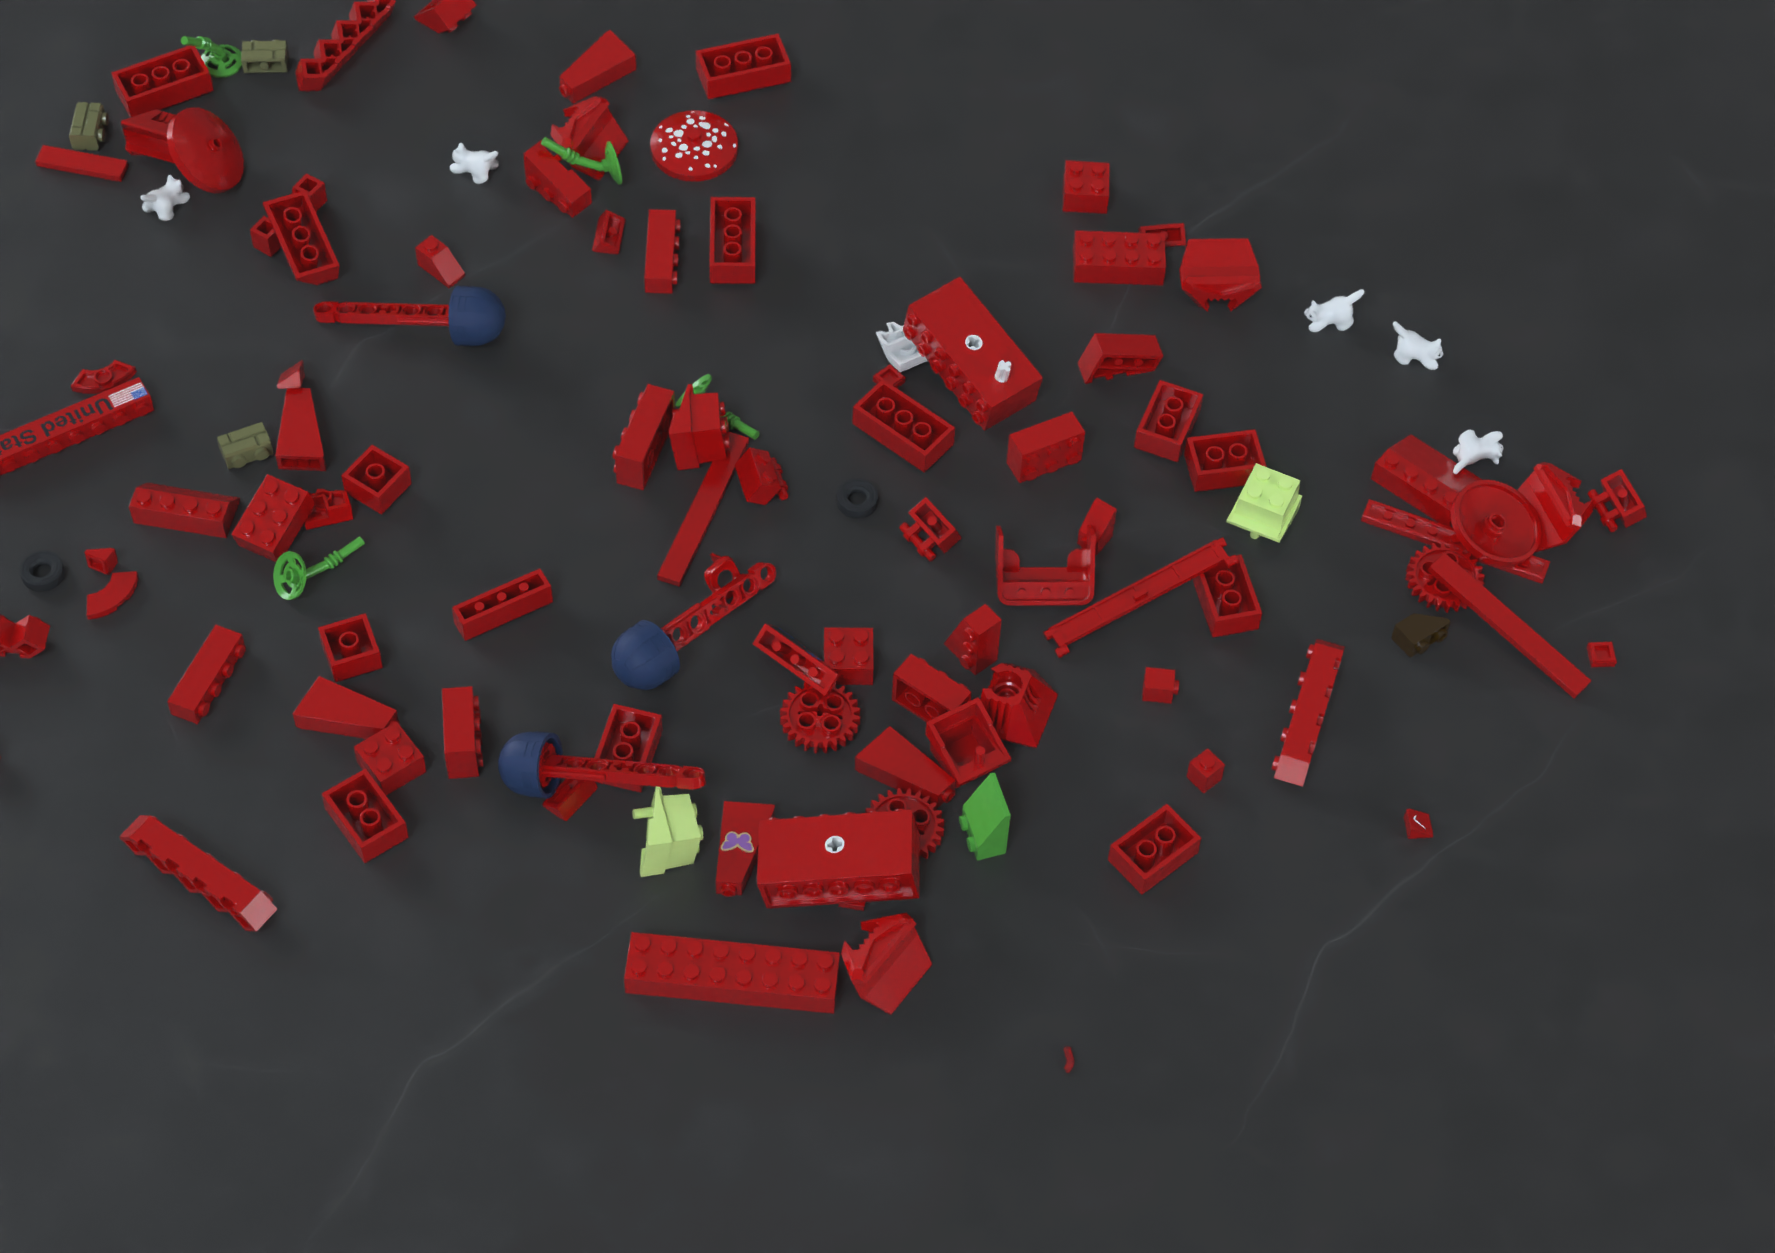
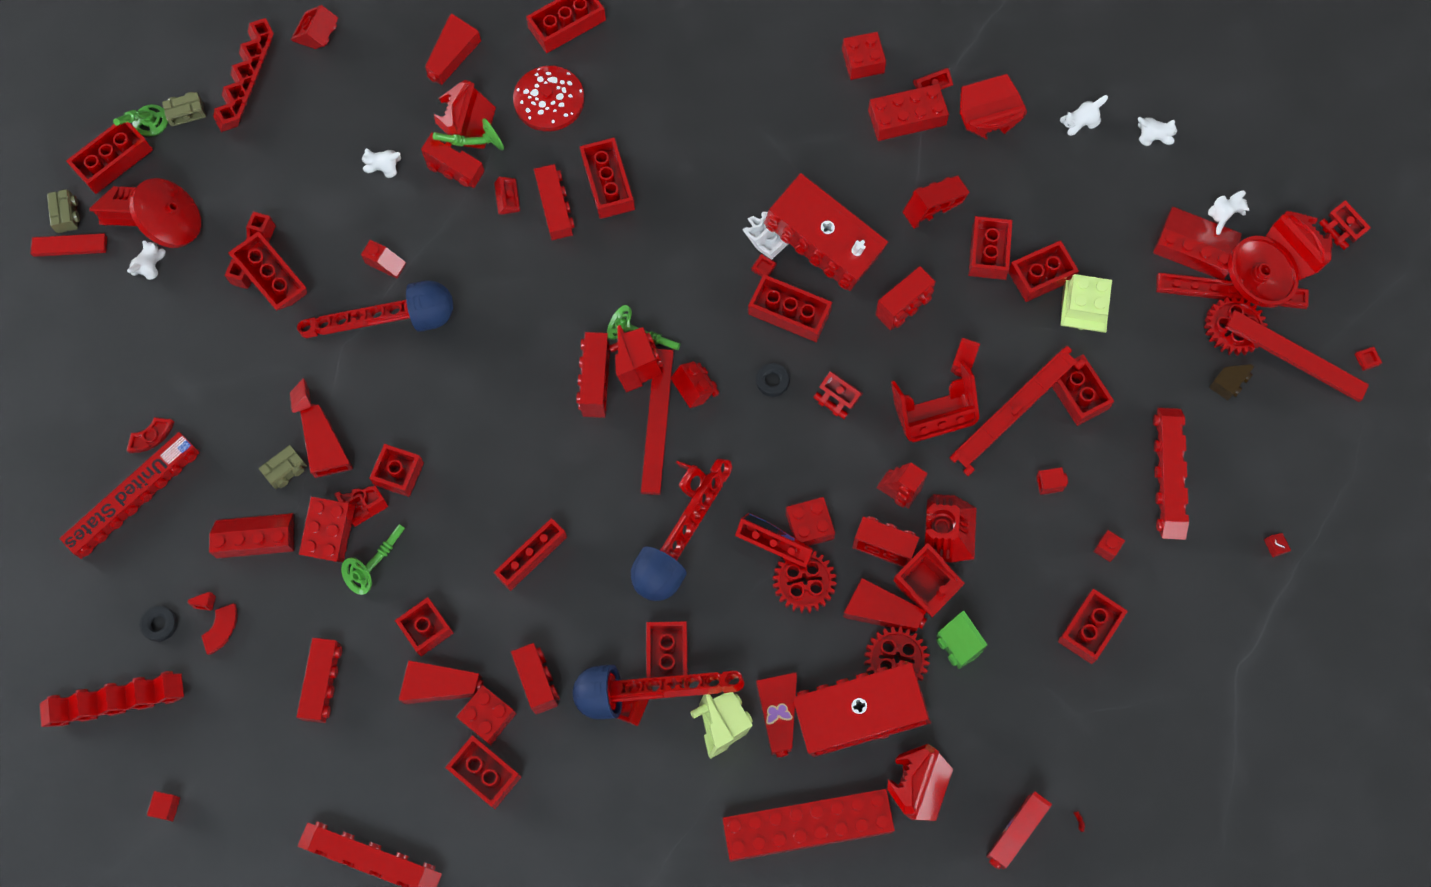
camera: 10 degrees left, 15 degrees up
(988, 1041) = (1018, 830): none -> red slope

